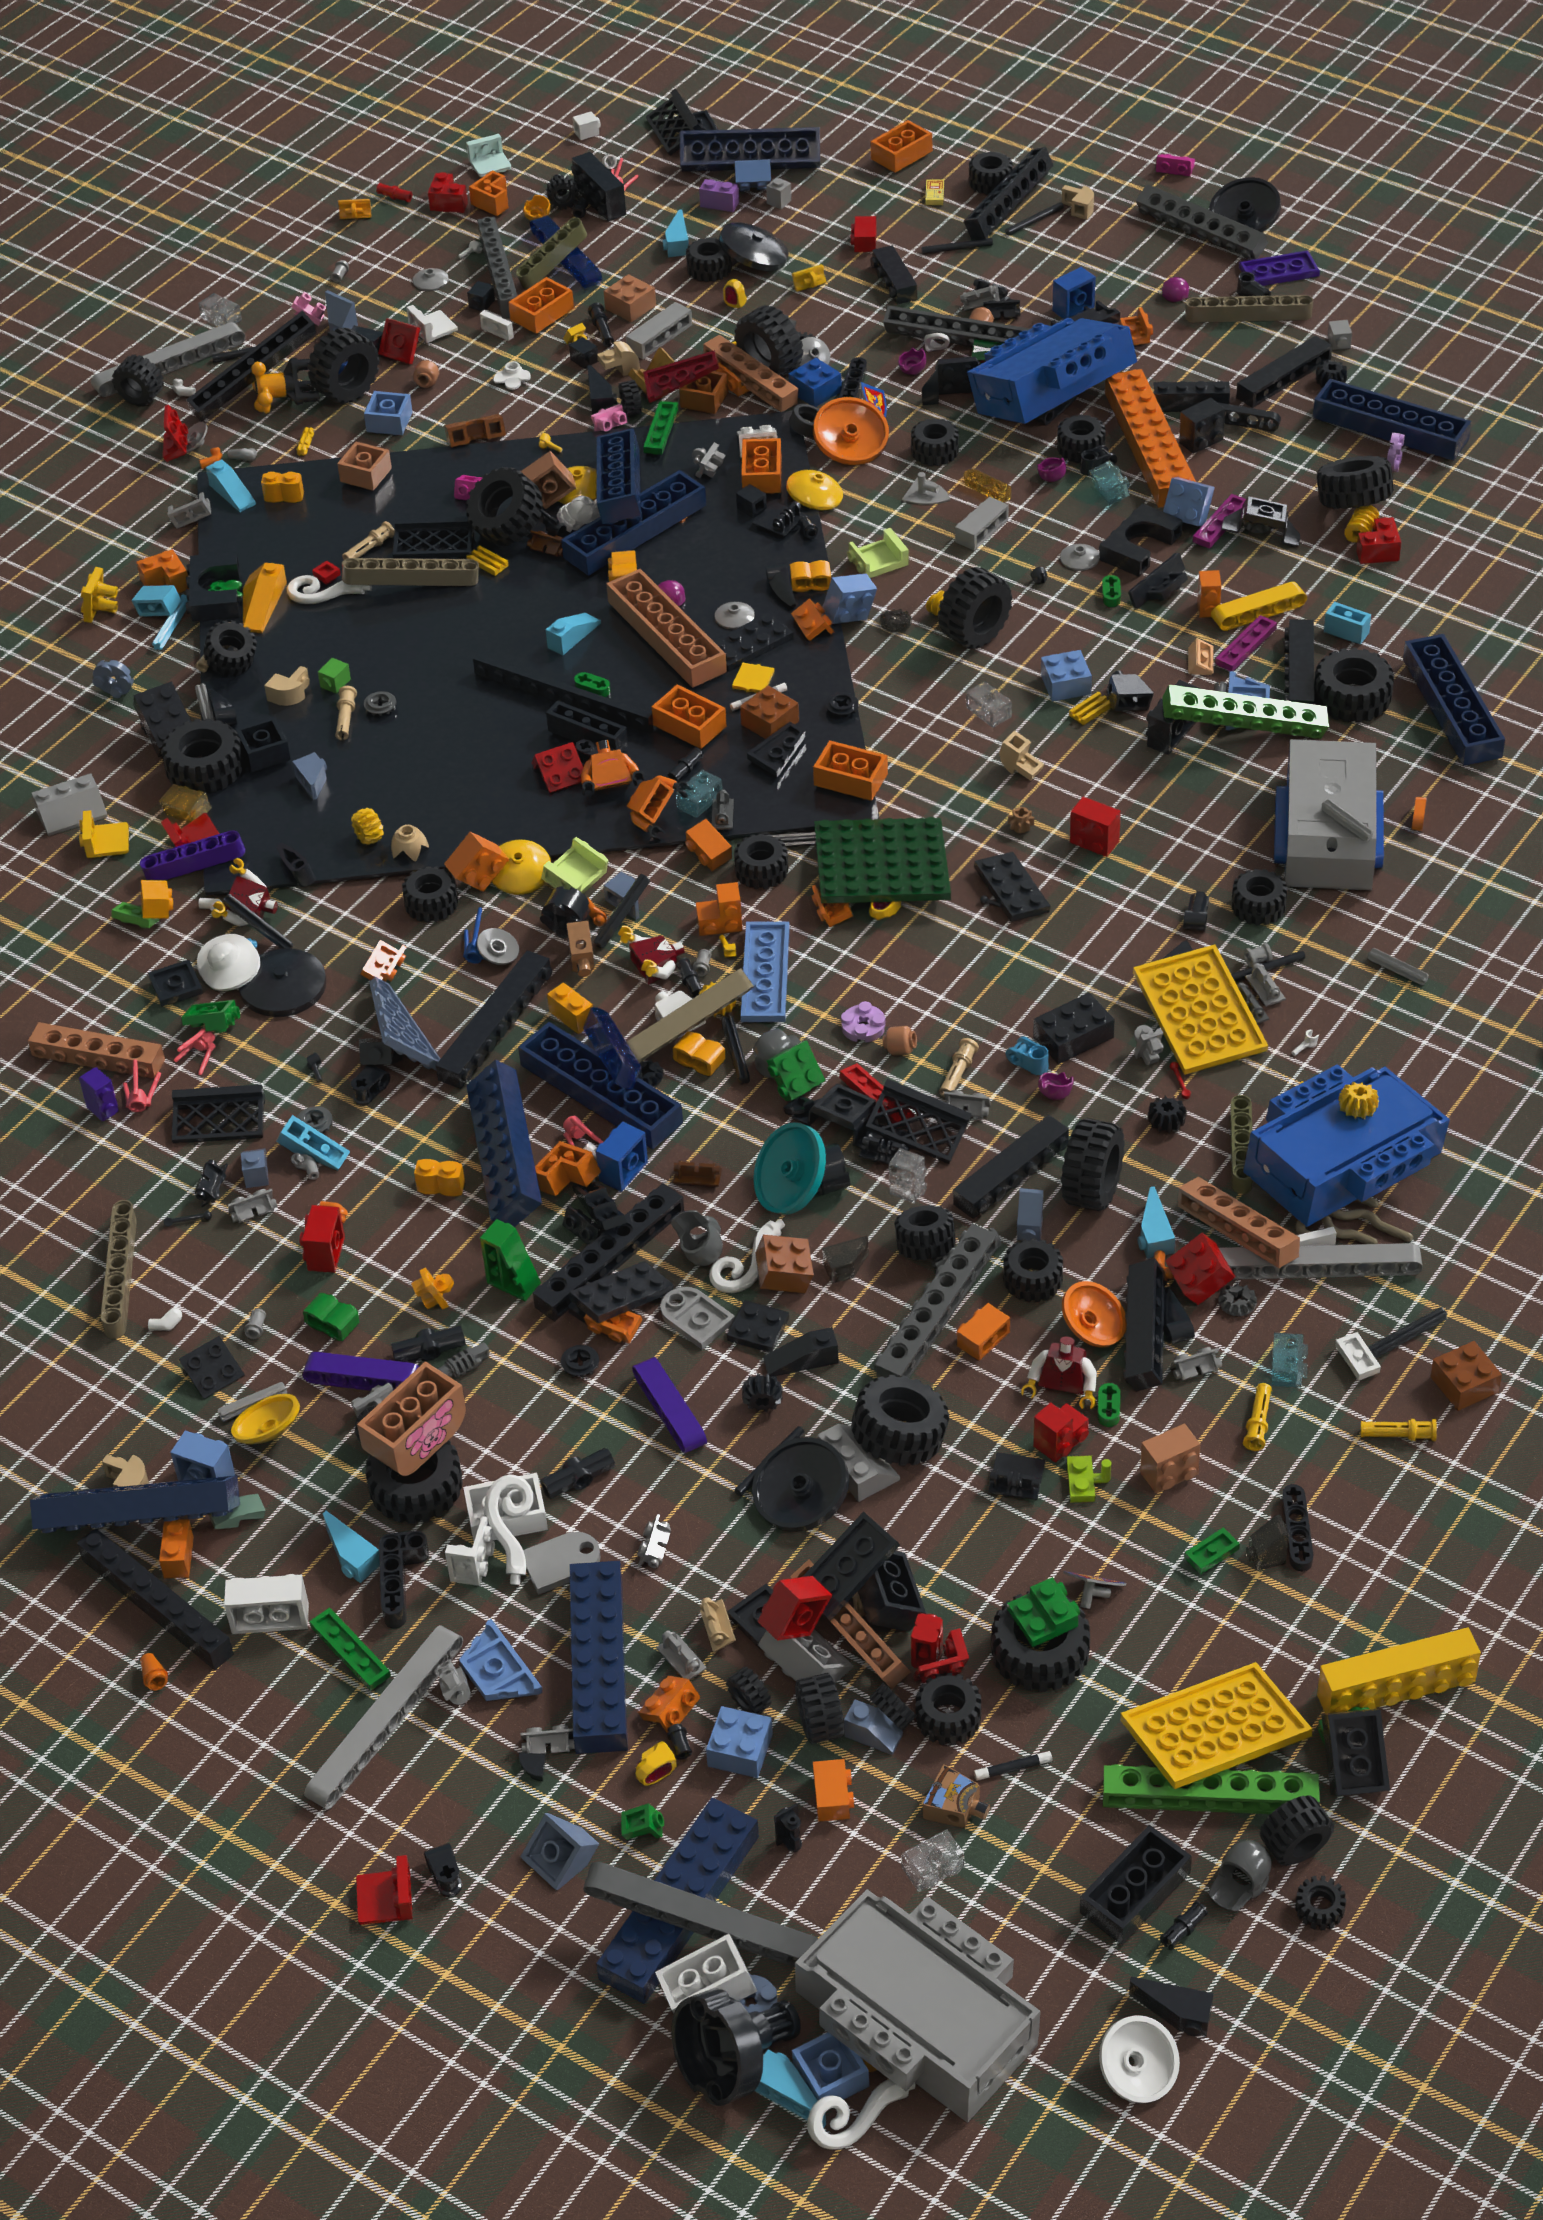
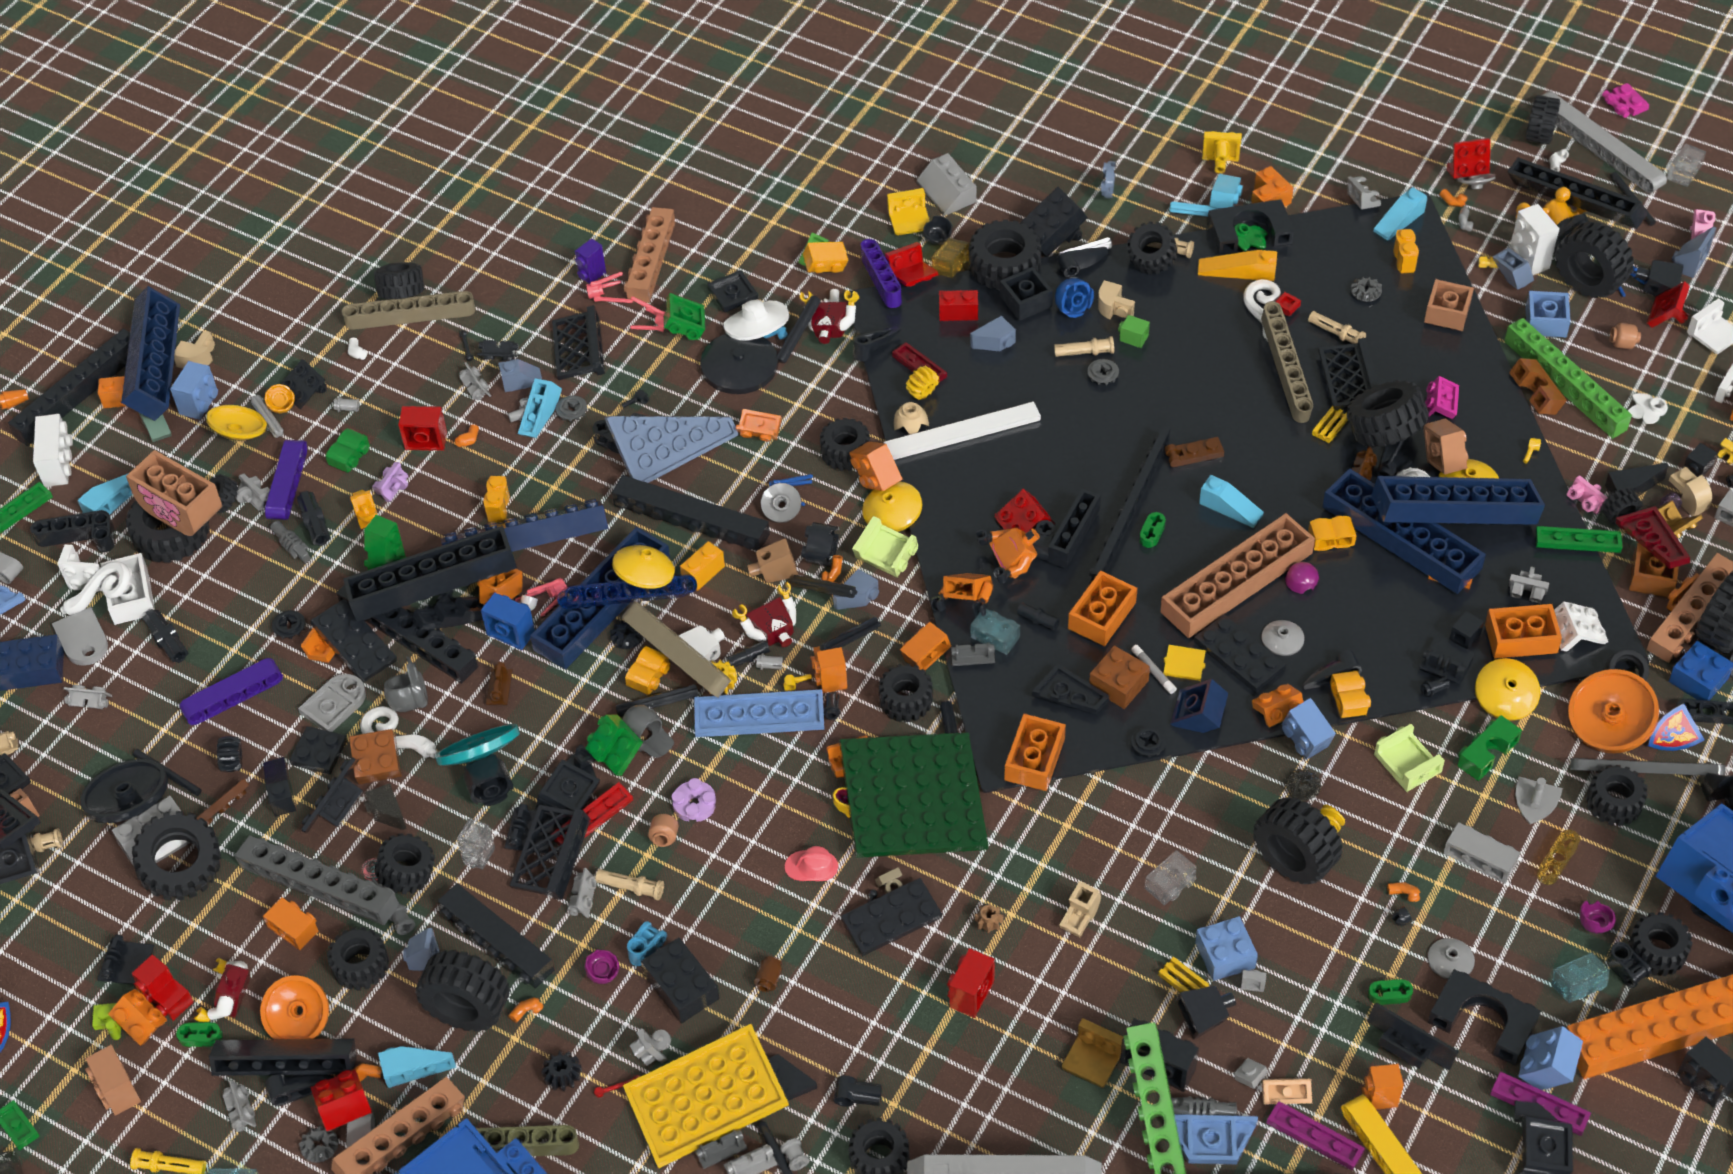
camera: 85 degrees right, 5 degrees up
(77, 1267) = (399, 280): none -> black tyre
(116, 338) = (1625, 100): none -> dark pink plate
(139, 813) = (937, 230): none -> black hair
(235, 1384) = (279, 398): none -> light orange hair
(261, 797) = (958, 305): none -> red brick
(273, 706) = (1074, 297): none -> blue cylinder
(301, 401) = (1535, 238): none -> white brick
(322, 426) = (1514, 268): none -> sand blue slope
(324, 522) = (1373, 292): none -> dark grey gear
(328, 837) = (914, 359): none -> dark red tile
(397, 1278) = (393, 480): none -> lavender hips
(432, 806) = (963, 430): none -> white tile
(499, 400) = (1569, 378): none -> bright green brick
(500, 646) = (1194, 452): none -> reddish brown plate
(562, 1203) = (429, 573): none -> black brick
(584, 1029) = (643, 566): none -> yellow dish
(622, 372) = (1672, 497): none -> bush
(689, 893) = (852, 634): none -> black axle
(764, 916) = (832, 706): none -> black pin
(810, 667) = (1200, 707): none -> dark blue slope
(822, 1401) = (221, 804): none -> reddish brown plate
(835, 1293) = (337, 801): none -> black bracket
(864, 502) = (1498, 735): none -> green arch
(905, 425) = (1649, 766): none -> dark grey beam
(918, 1272) = (368, 869): none -> clear tile
(946, 940) = (811, 865): none -> coral piece
(972, 883) = (889, 878): none -> dark tan tile
(1015, 567) = (1404, 888): none -> orange arm
(1070, 968) = (768, 974): none -> reddish brown brick
(1093, 1447) = (137, 1016): none -> orange bracket
(1097, 663) = (1253, 980): none -> light grey plate
(1164, 764) = (1093, 1053): none -> pearl gold bracket
(1186, 673) = (1250, 1073): none -> light grey plate

